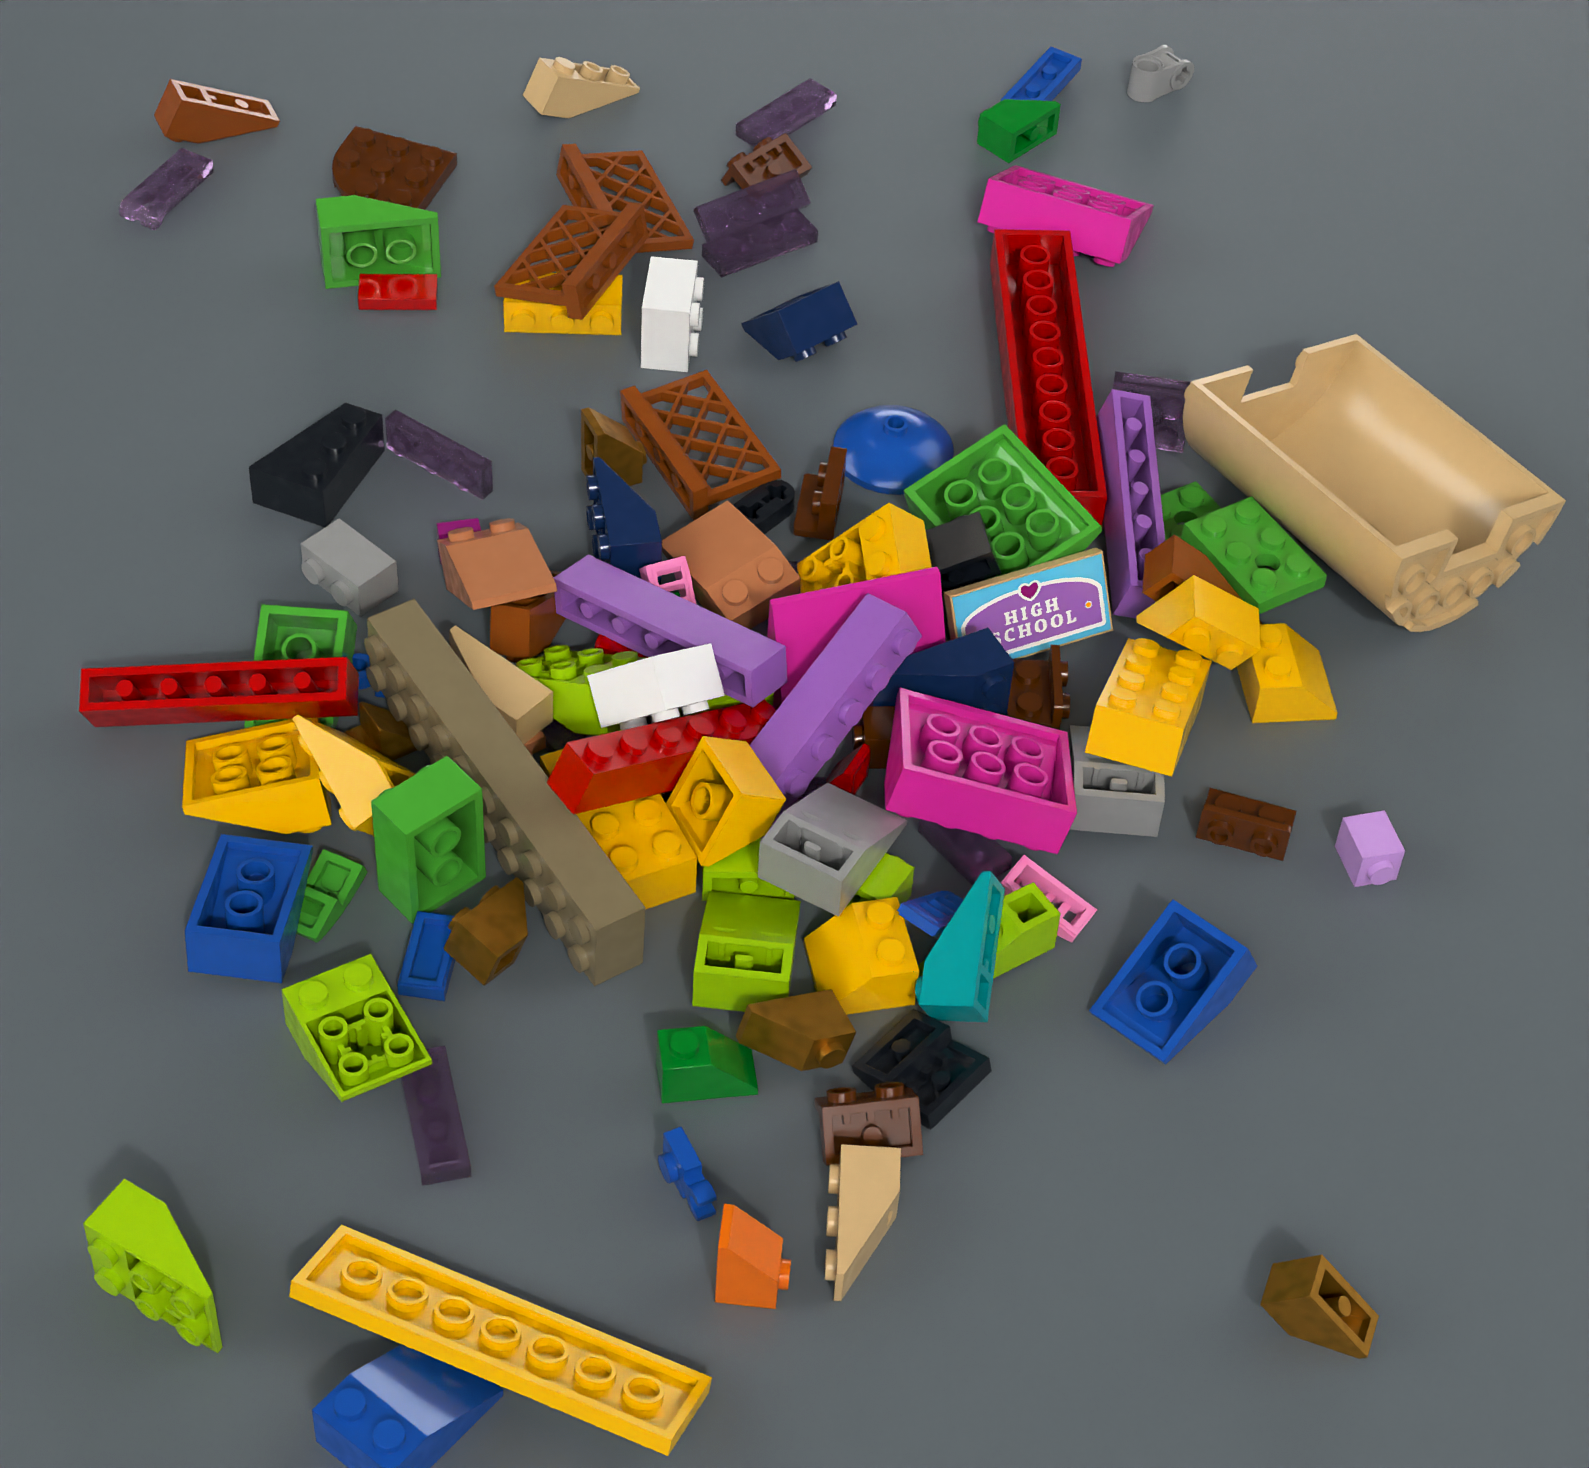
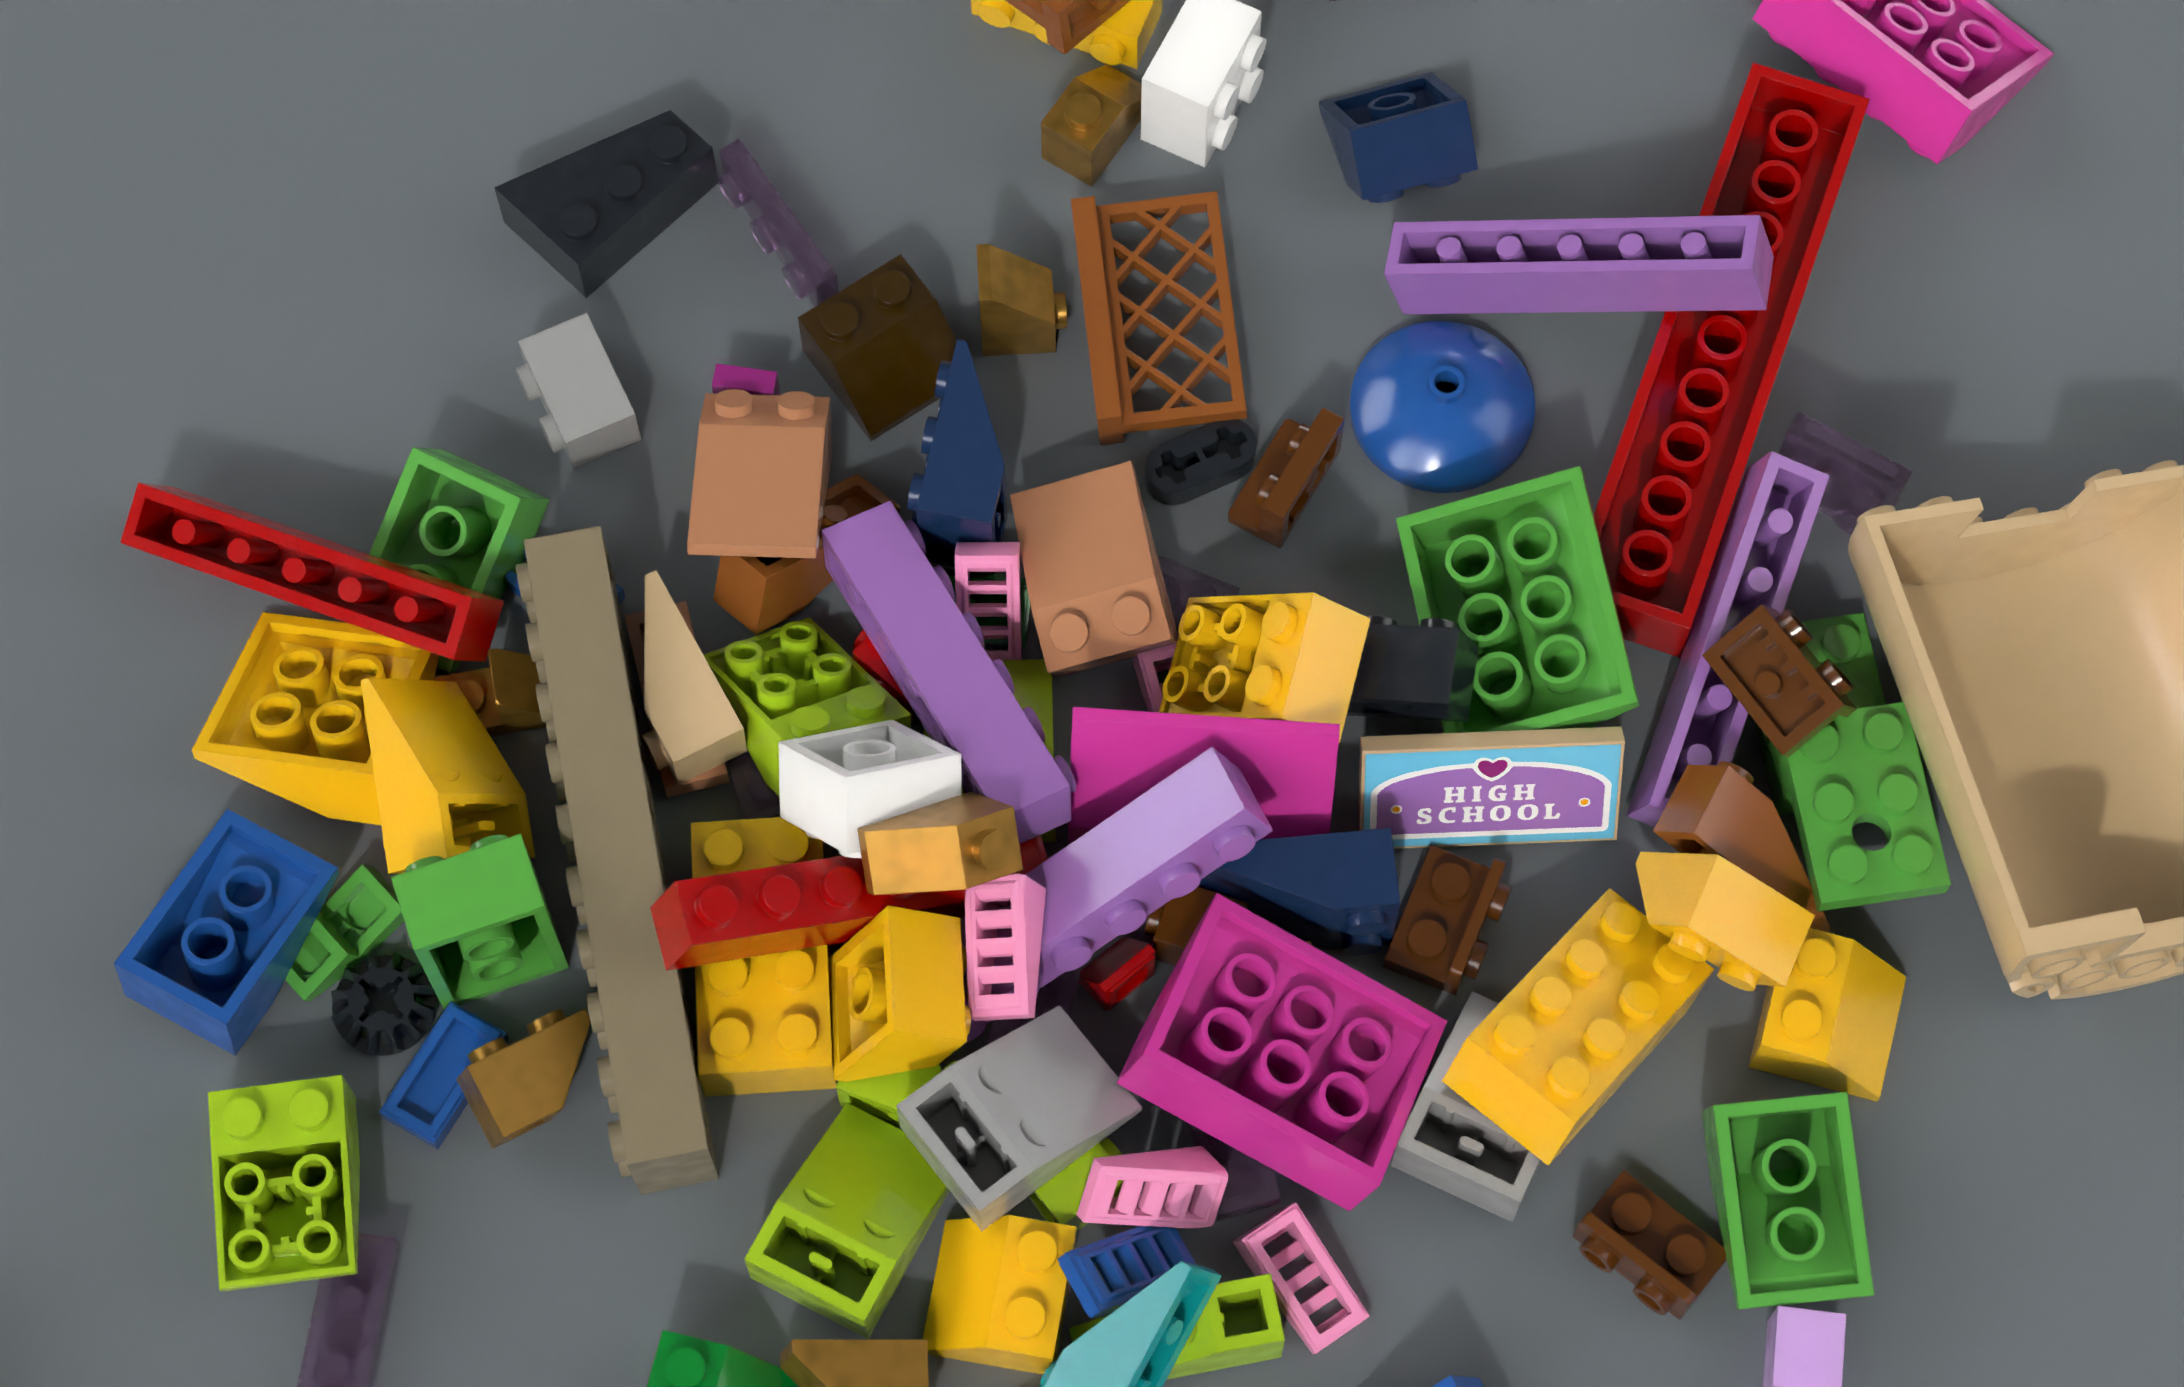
camera: 25 degrees right, 20 degrees up
(381, 939) = (383, 1032): none -> black gear
(537, 491) = (880, 346): none -> dark brown slope
(609, 362) = (1091, 122): none -> pearl gold slope
(723, 693) = (941, 847): none -> pearl gold slope
(767, 723) = (982, 946): none -> bright pink slope
(938, 867) = (1190, 1203): none -> bright pink slope
(948, 339) = (1580, 265): none -> medium lavender brick
(1176, 493) = (1780, 678): none -> reddish brown bracket
(1314, 762) = (1788, 1199): none -> bright green slope

